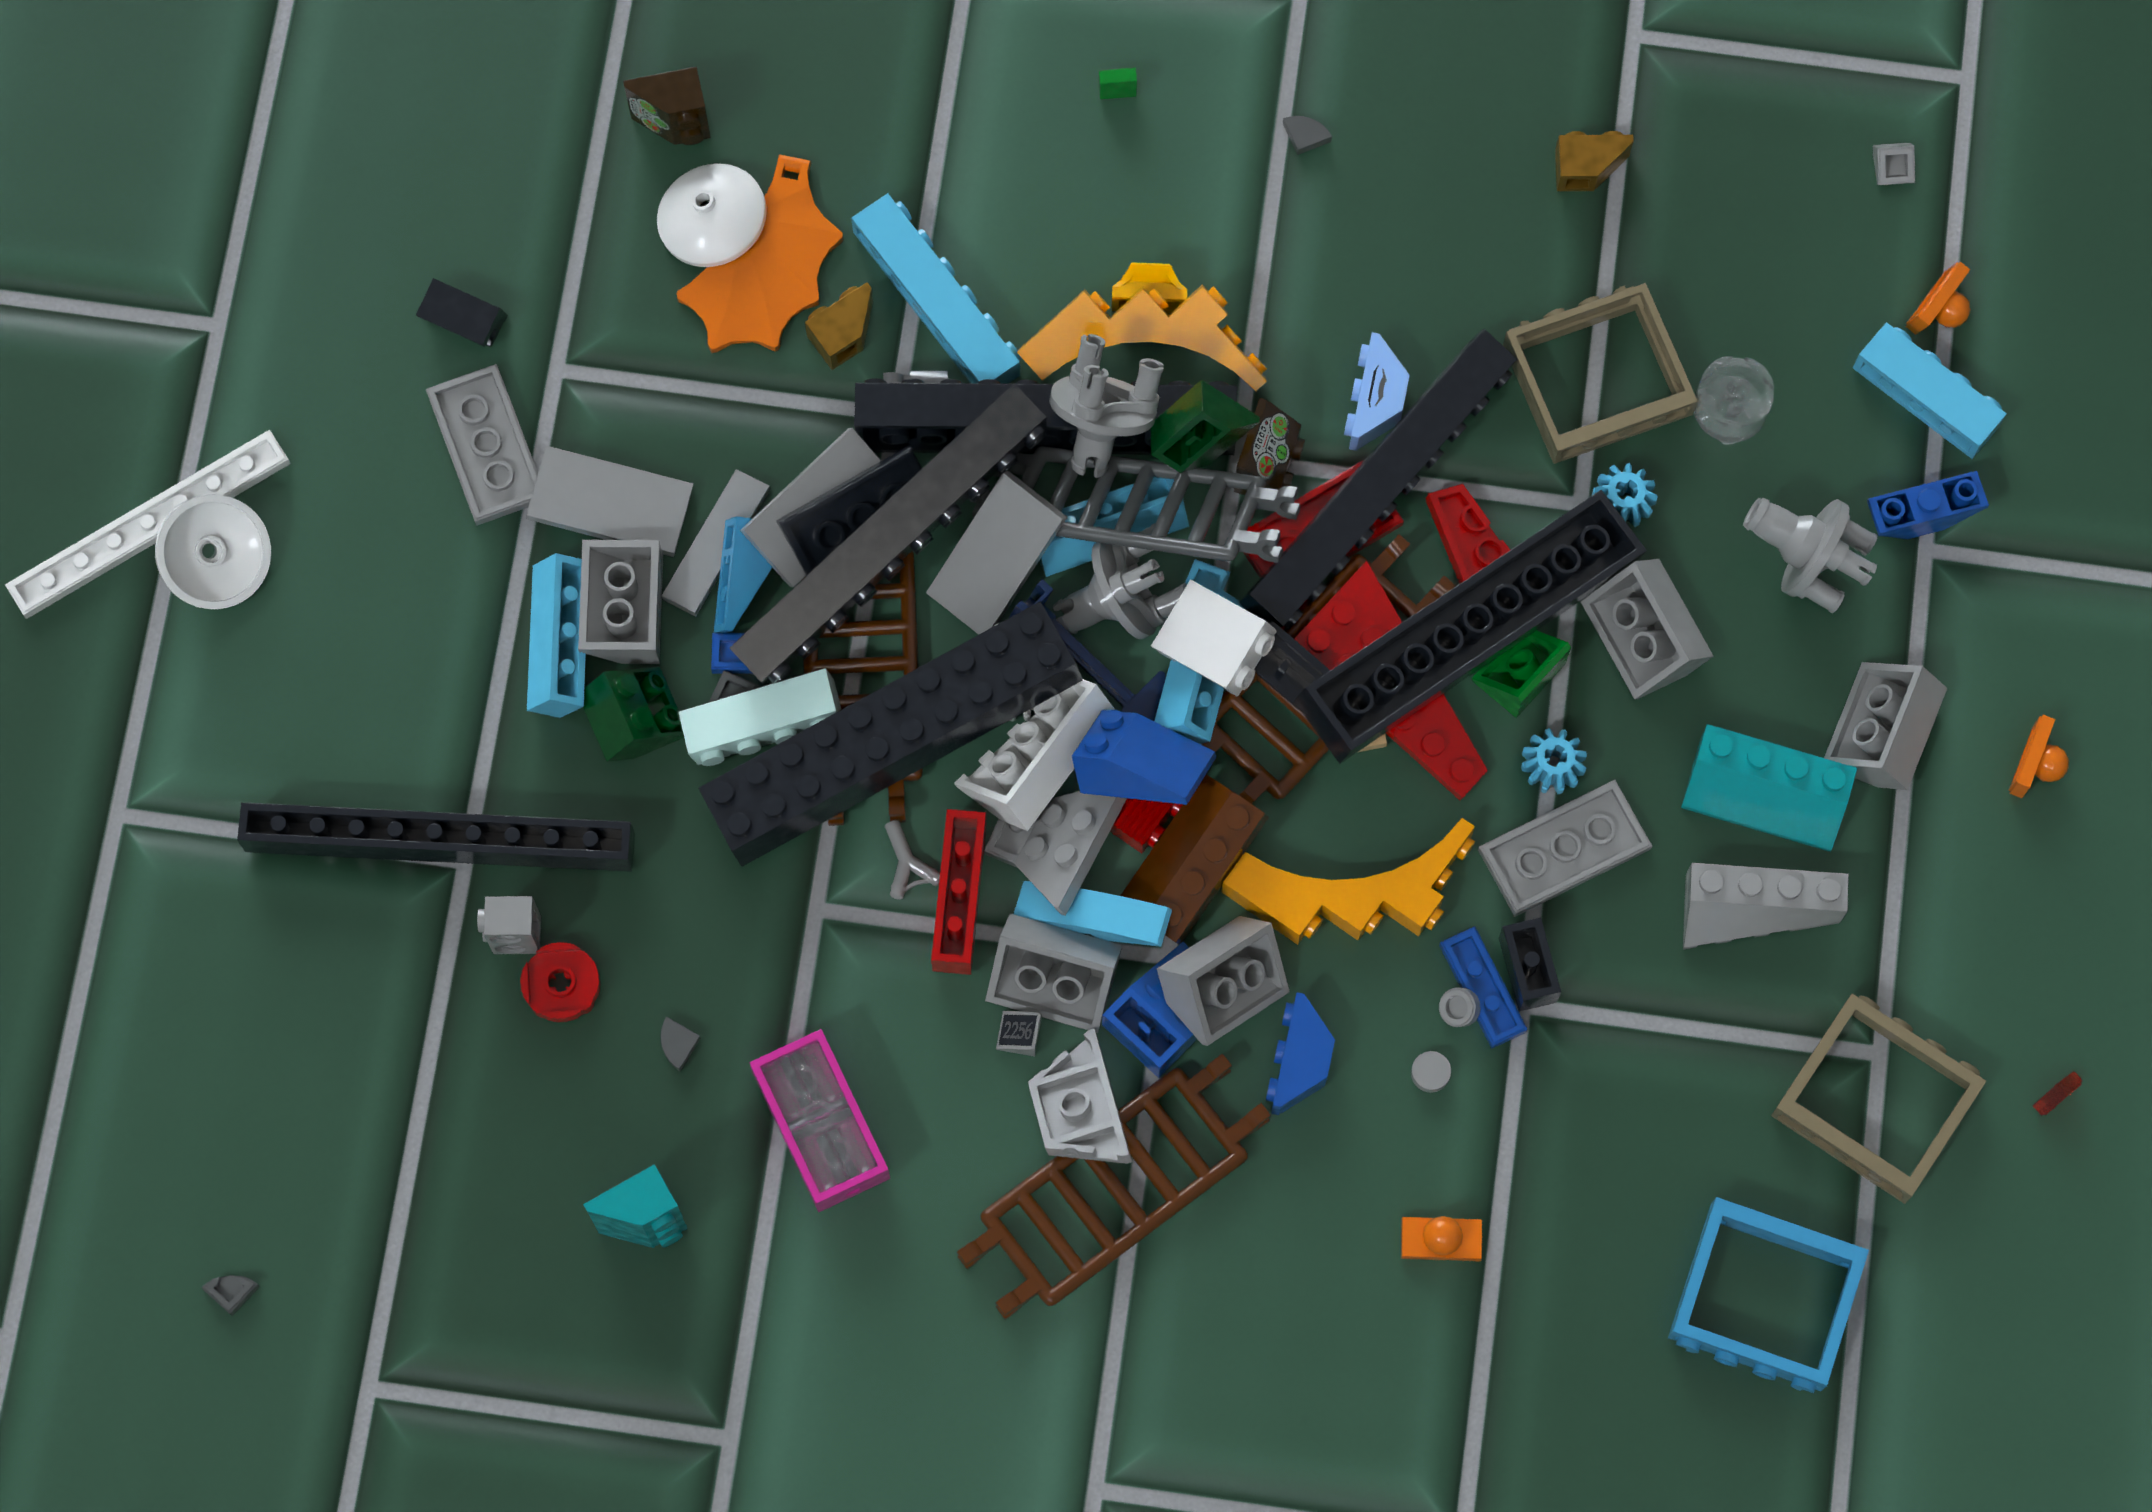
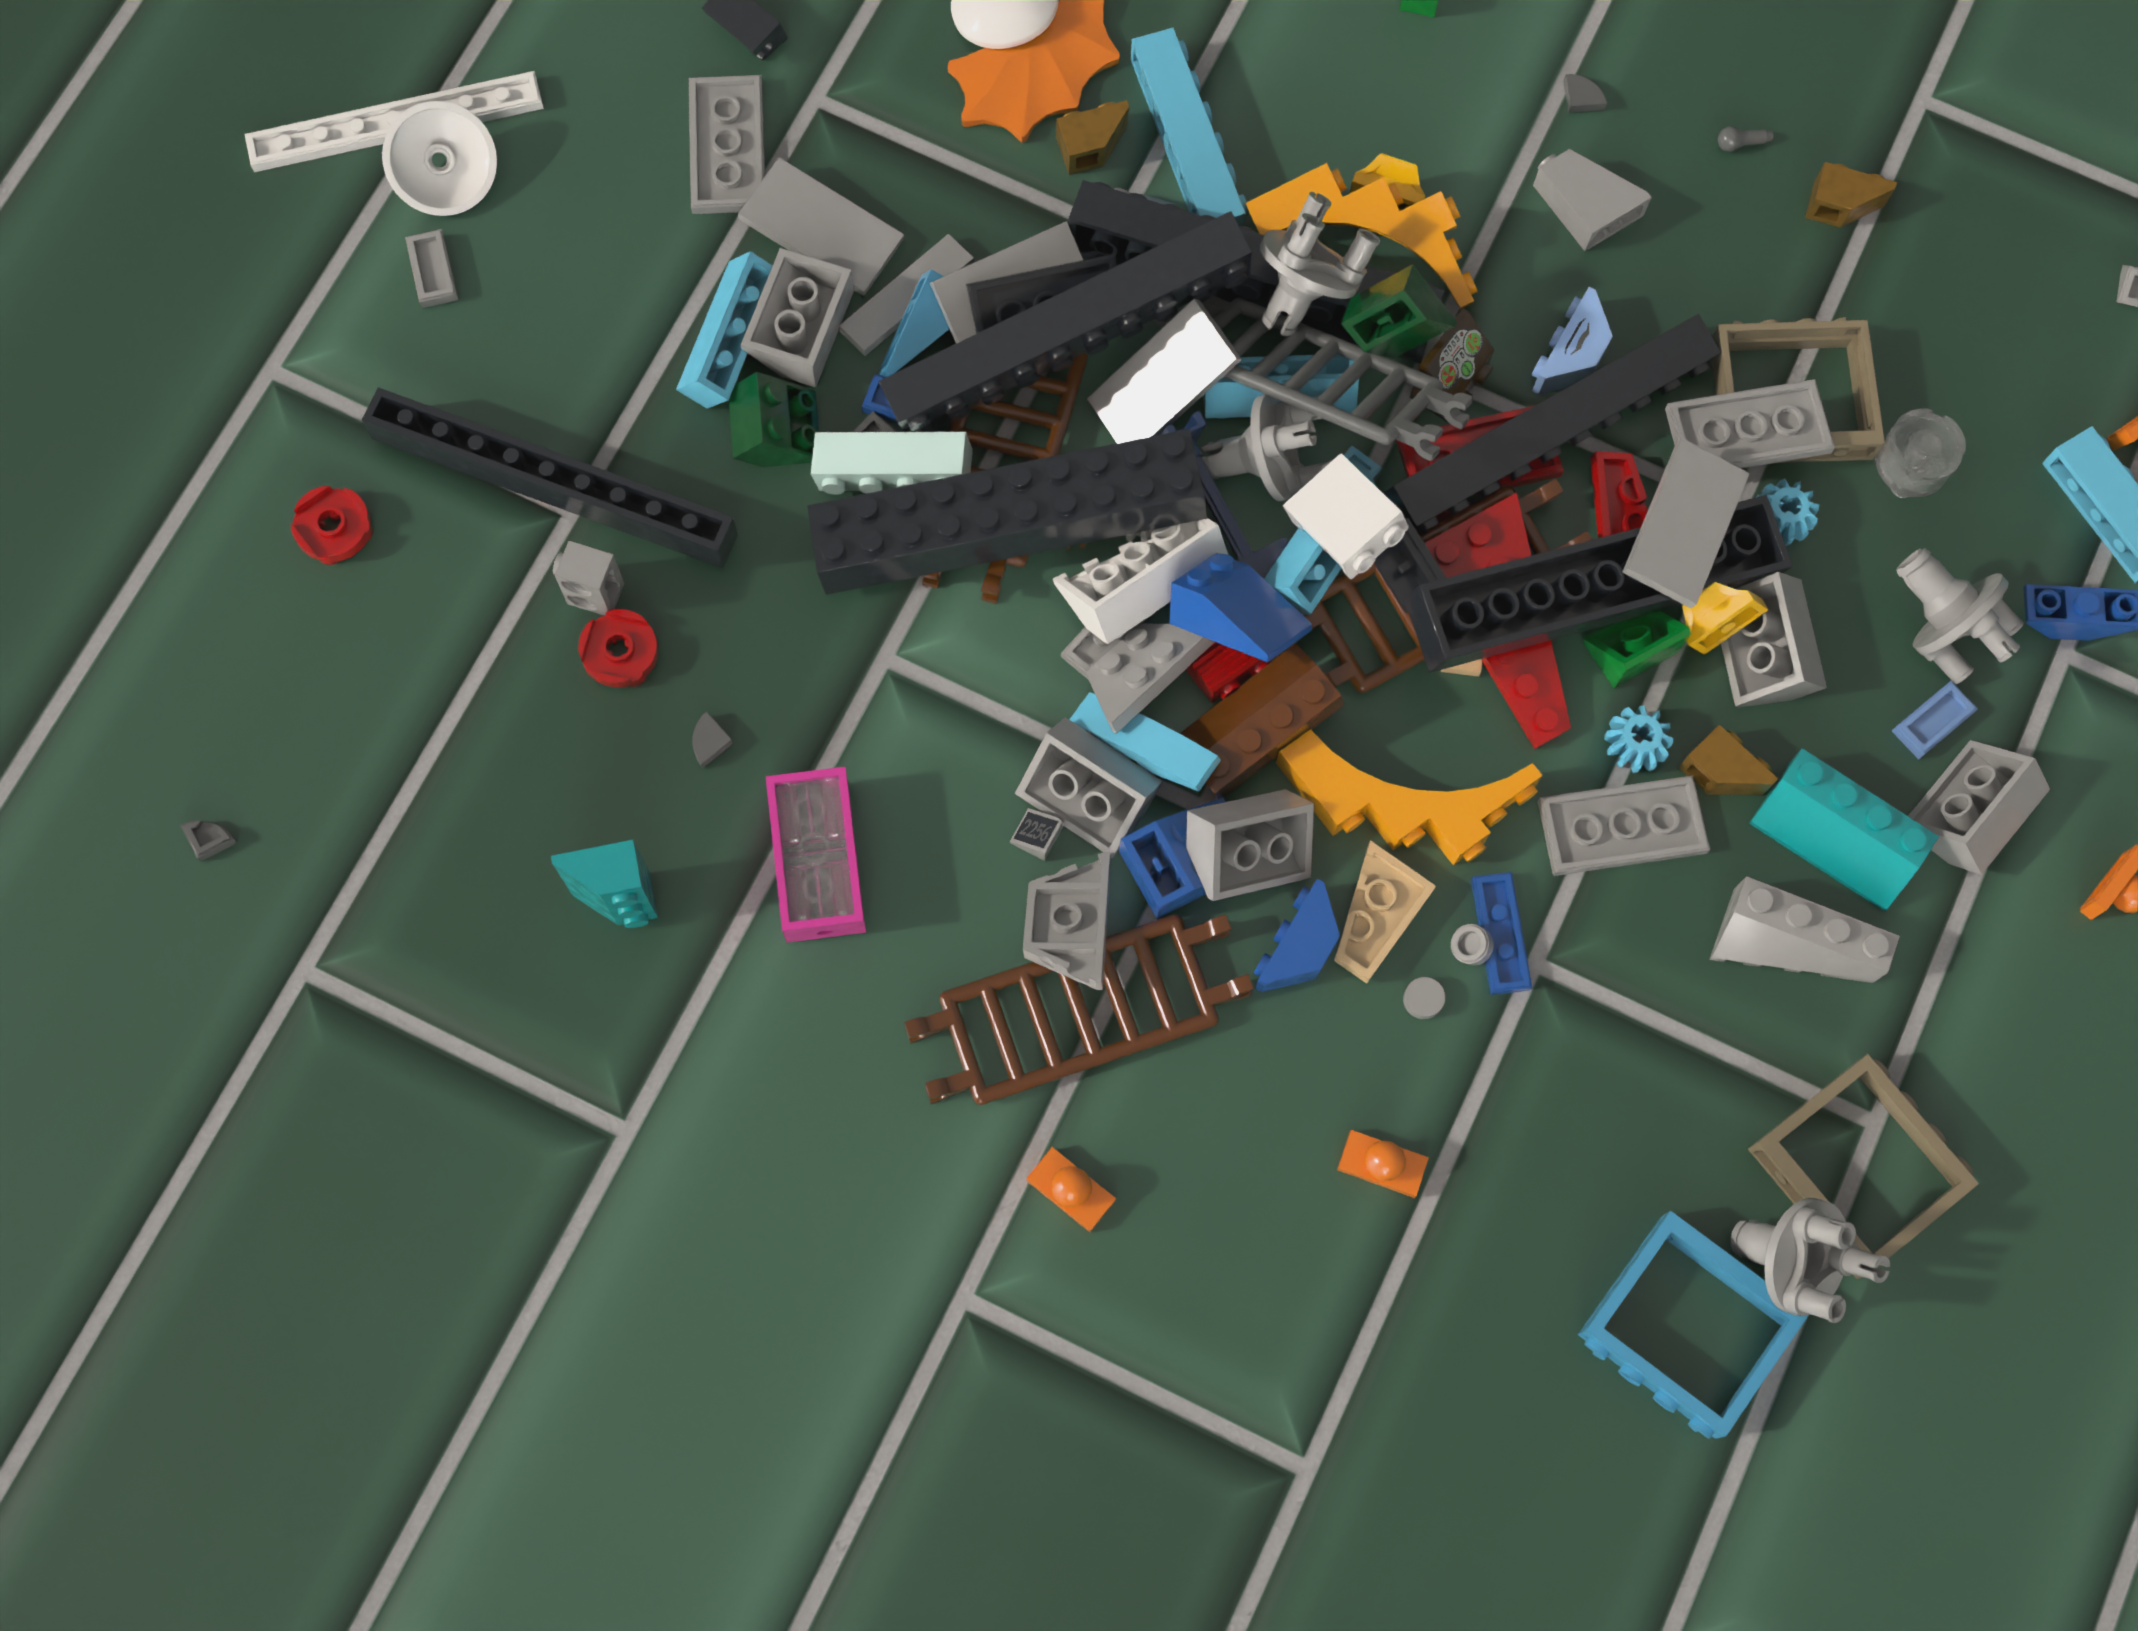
camera: 15 degrees right, 0 degrees up
(240, 662) = (431, 268): none -> light grey tile
(244, 970) = (336, 544): none -> red plate
(907, 863) = (984, 641): light grey piece -> none
(959, 892) = (1022, 681): red brick -> none
(1162, 1356) = (1071, 1189): none -> orange tile
(1343, 238) = (1588, 197): none -> light grey slope
(1365, 1001) = (1380, 911): none -> tan wing
(1463, 134) = (1734, 138): none -> dark grey piece
(1529, 964) = (1554, 924): black brick -> none
(1534, 544) = (1686, 523): none -> light grey tile
(1566, 427) = (1755, 424): none -> light grey tile
(1591, 619) = (1720, 615): none -> yellow slope
(1642, 762) = (1726, 767): none -> pearl gold slope
(1823, 653) = (1934, 720): none -> medium blue tile
(1850, 1200) = (1807, 1257): none -> light grey piece
(2058, 1093) = (2045, 1220): clear red tile -> none

